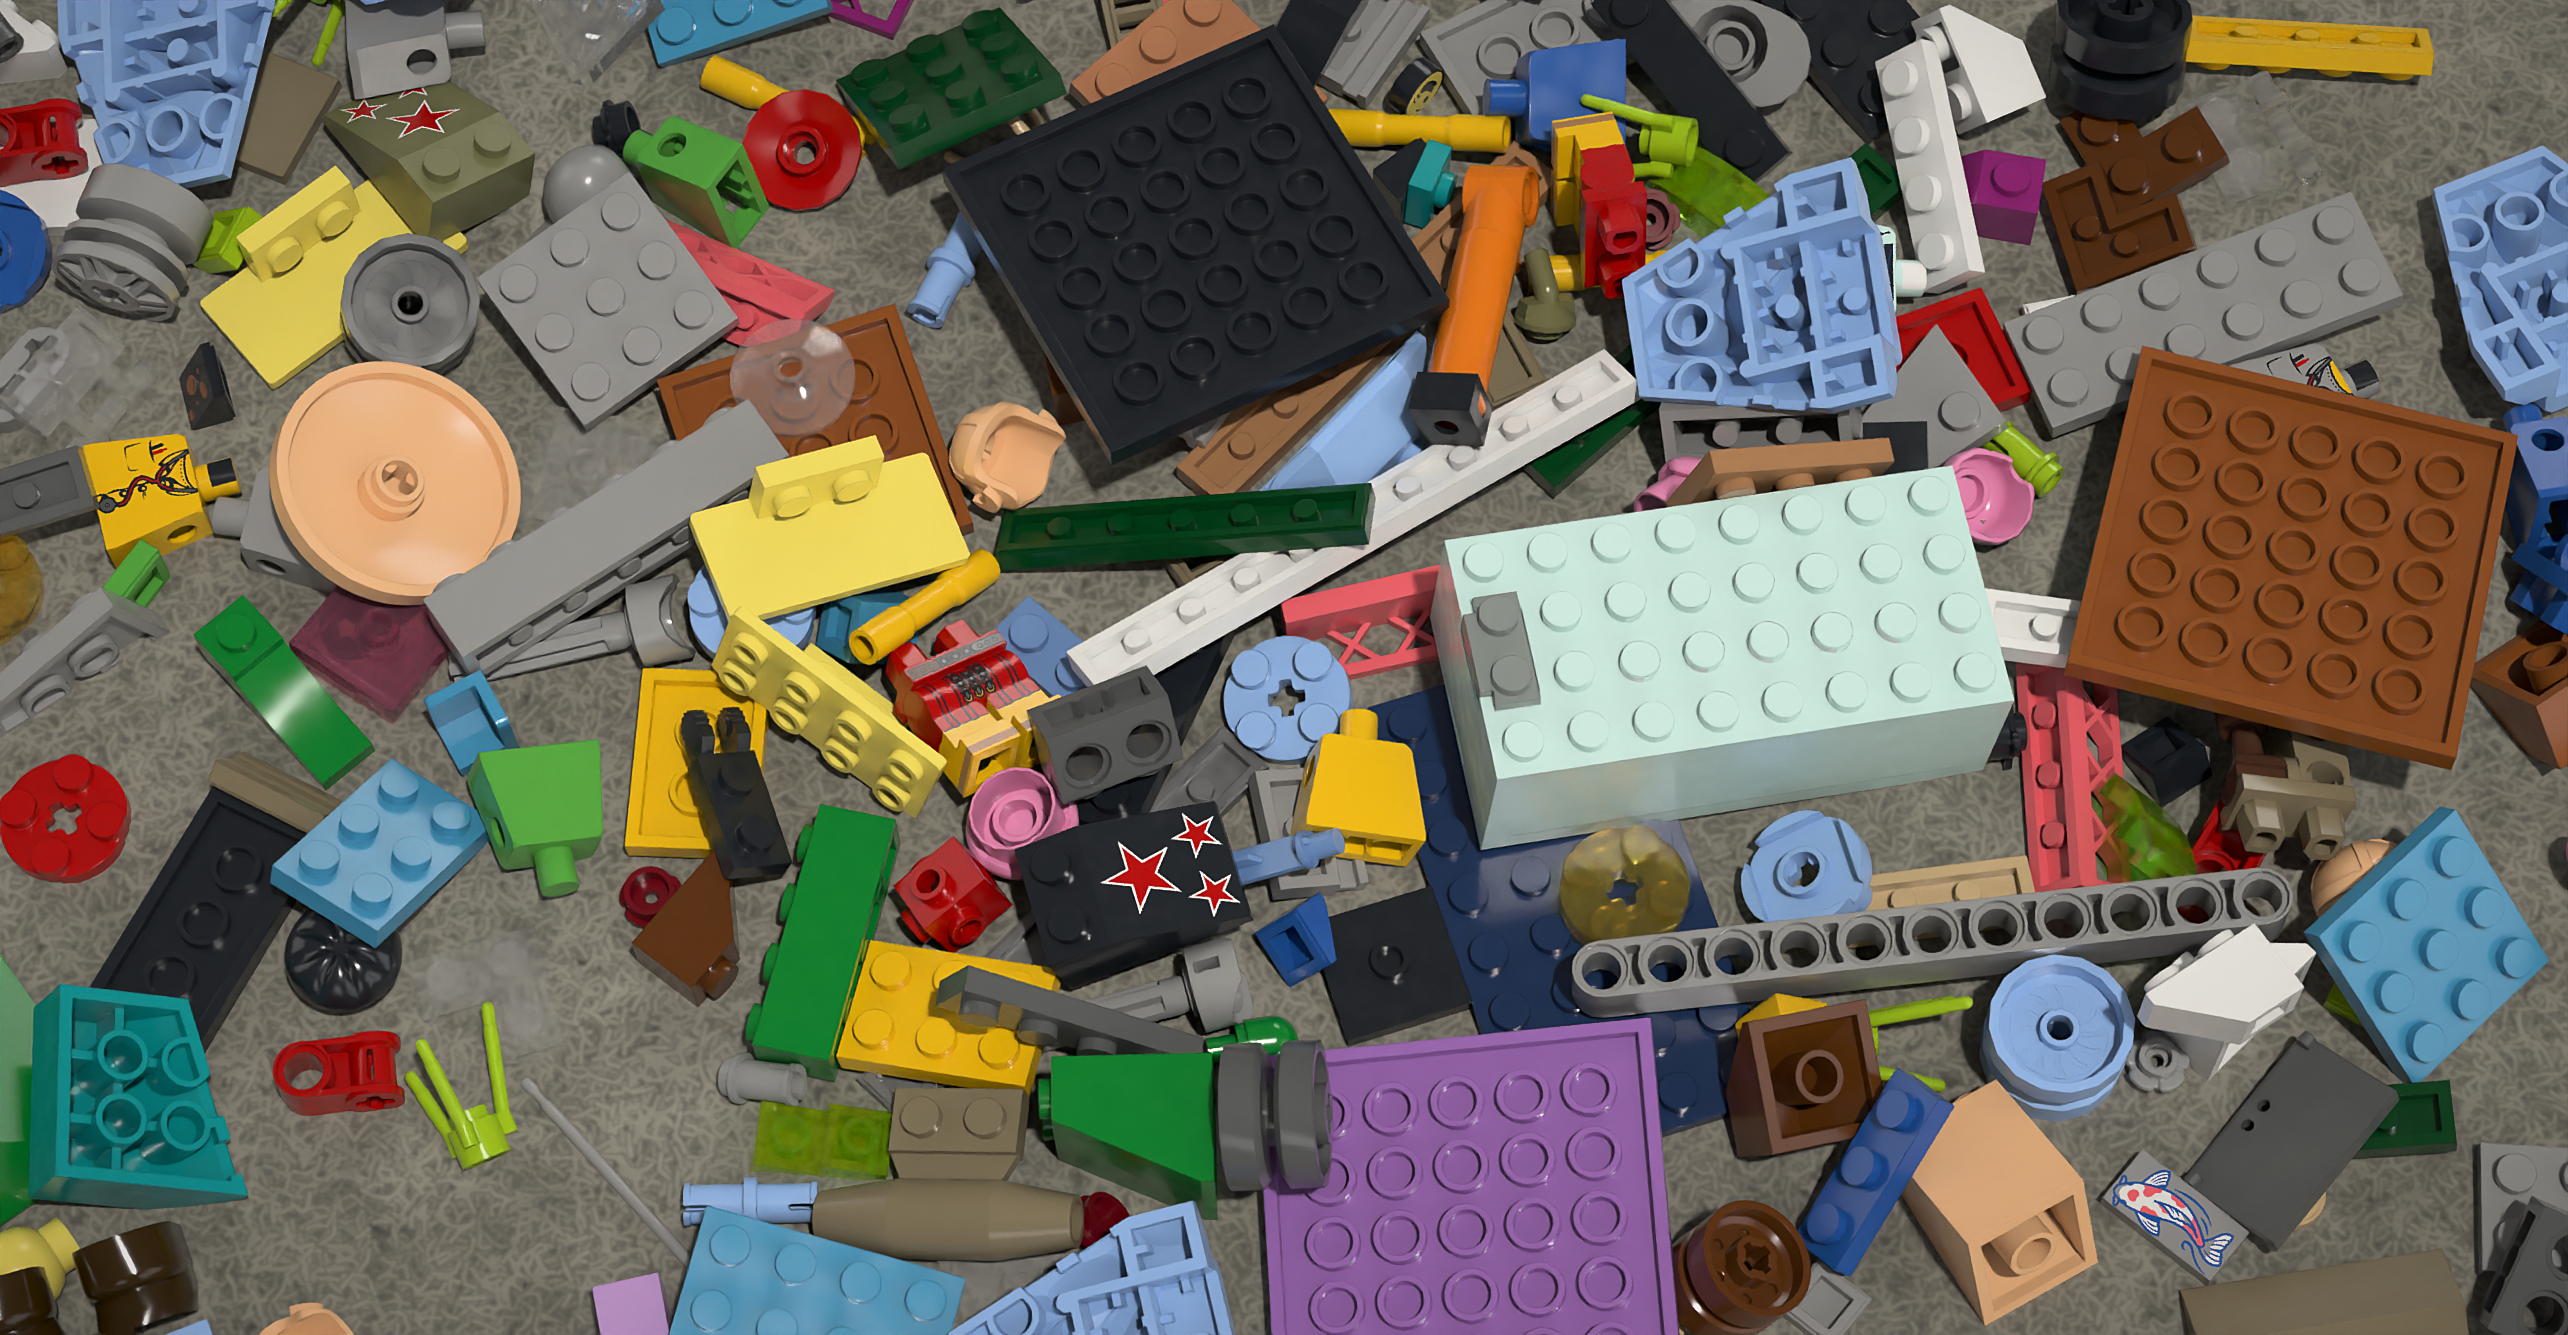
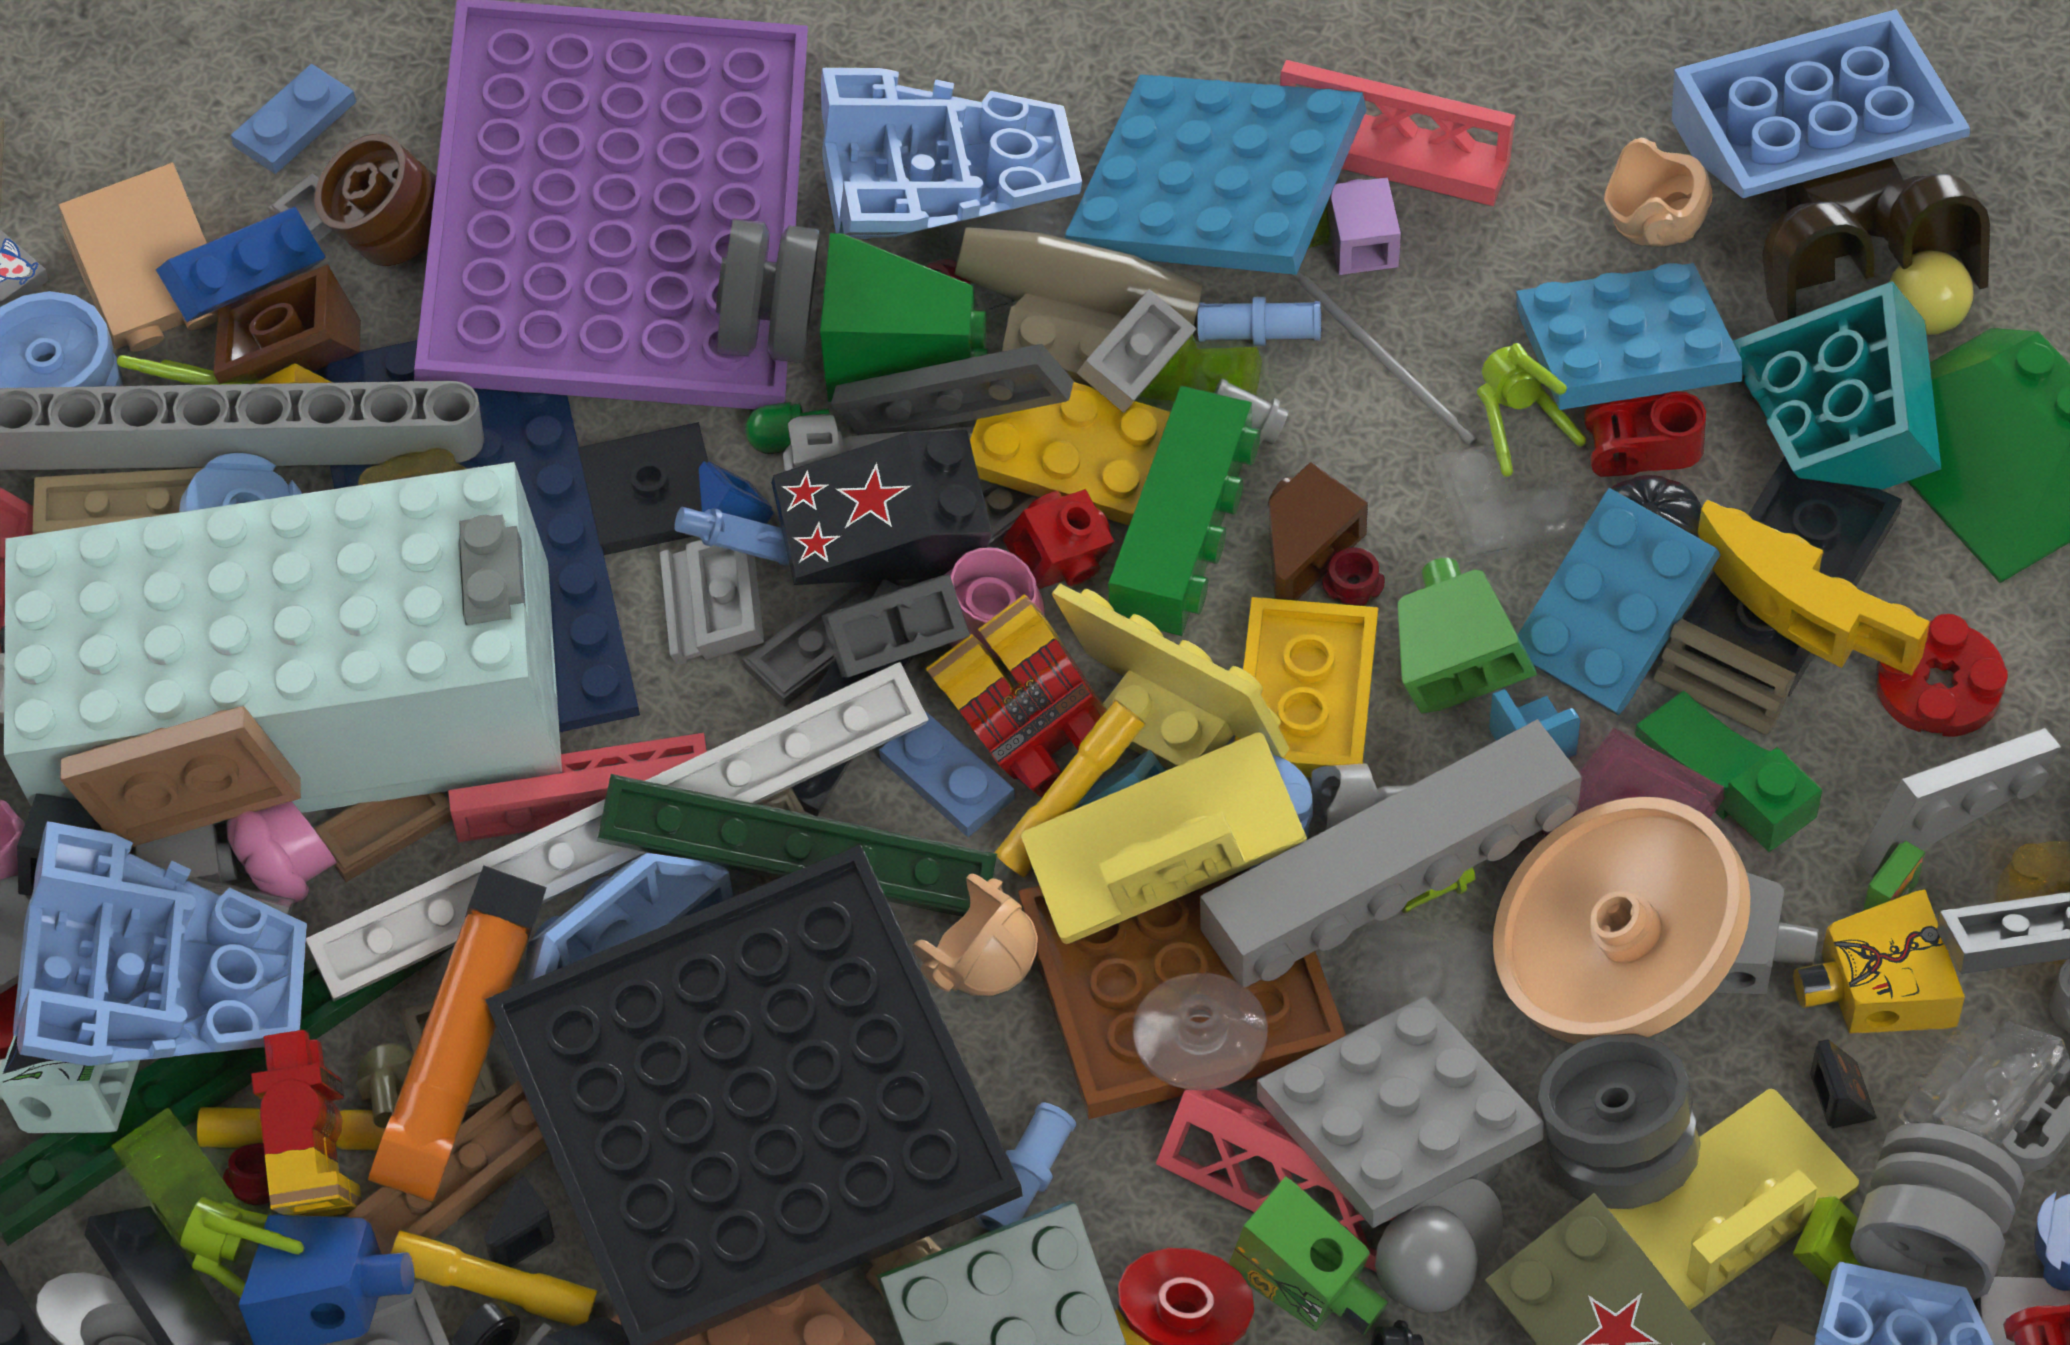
camera: 175 degrees left, 10 degrees down
(198, 855) = (1783, 586): none -> yellow slope
(350, 1186) = (1629, 335): none -> dark azure plate
(734, 796) = (1266, 617): black hinge -> none
(875, 1095) = (1136, 350): none -> light grey plate
(1259, 677) = (710, 683): light blue plate -> none
(1363, 791) = (659, 597): yellow torso -> none
(1430, 184) = (479, 1212): teal plate -> none

